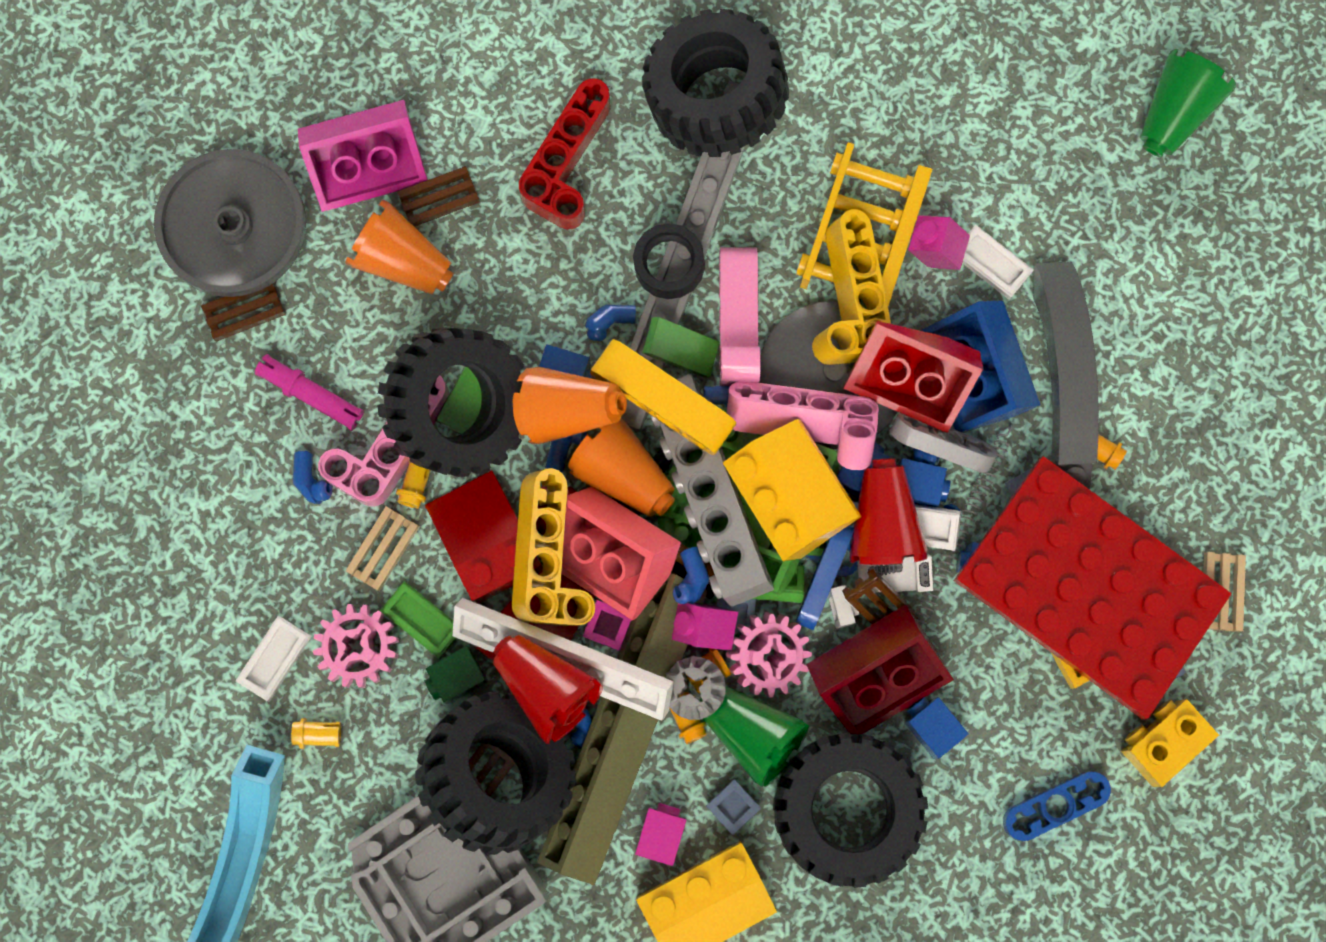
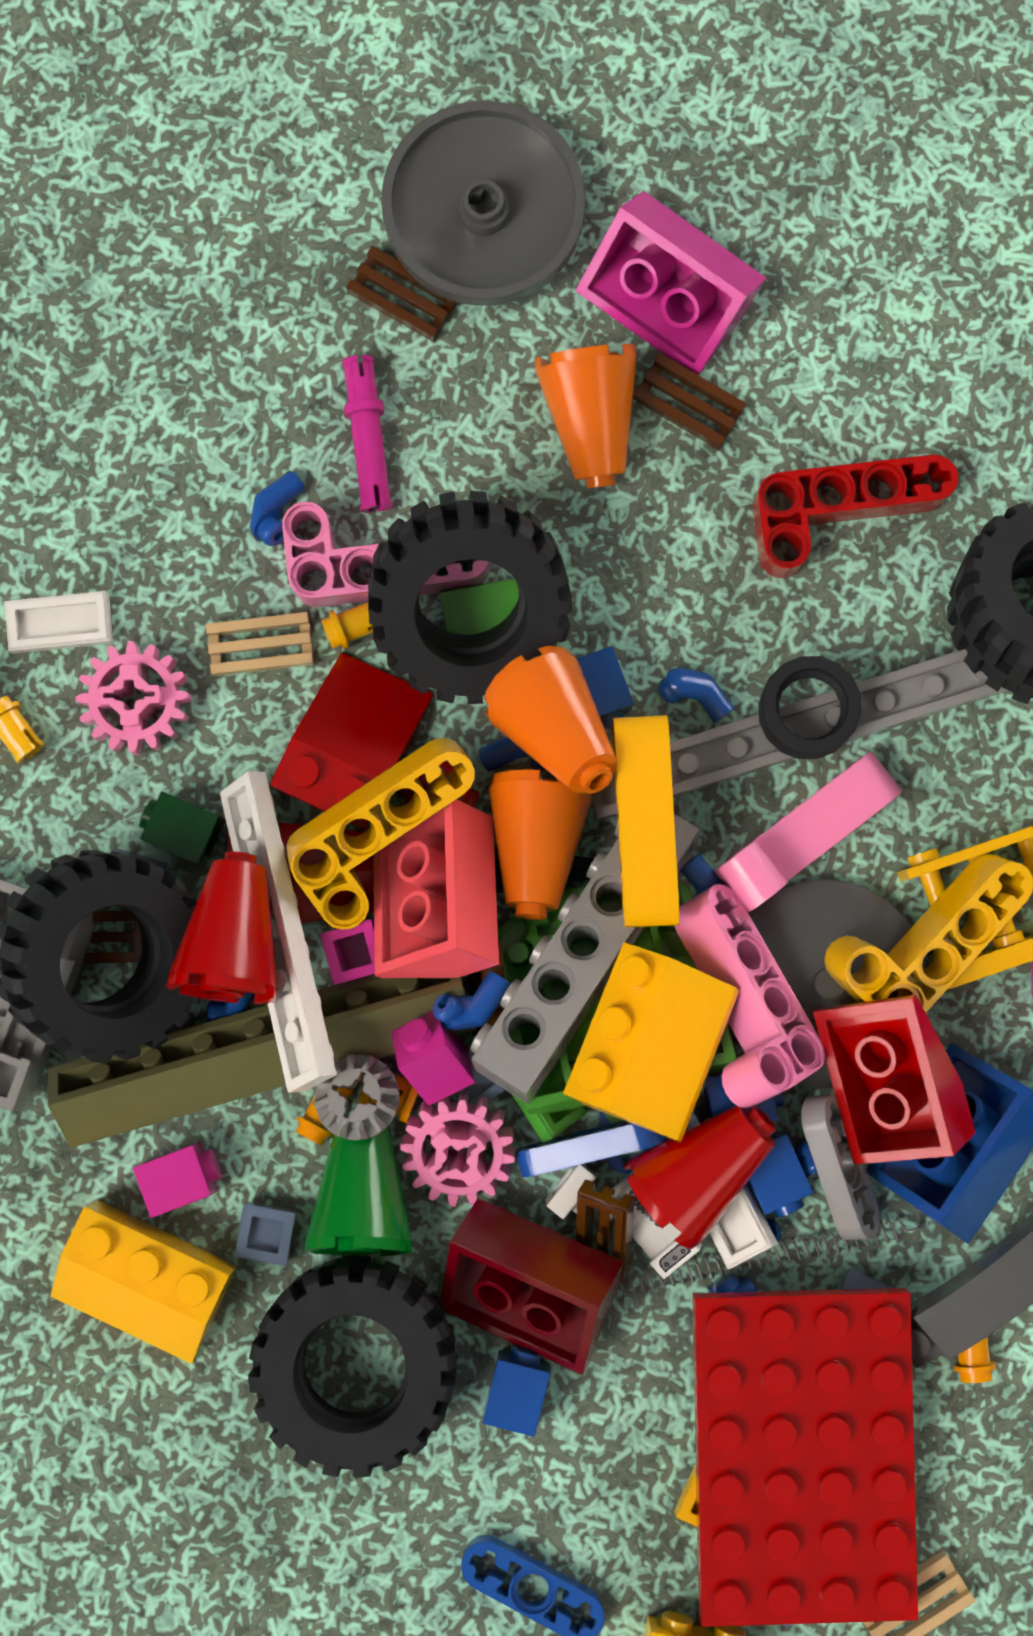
camera: 55 degrees right, 5 degrees up
(420, 619) = (215, 743): bright green tile -> none
(680, 347) = (723, 794): bright green tile -> none

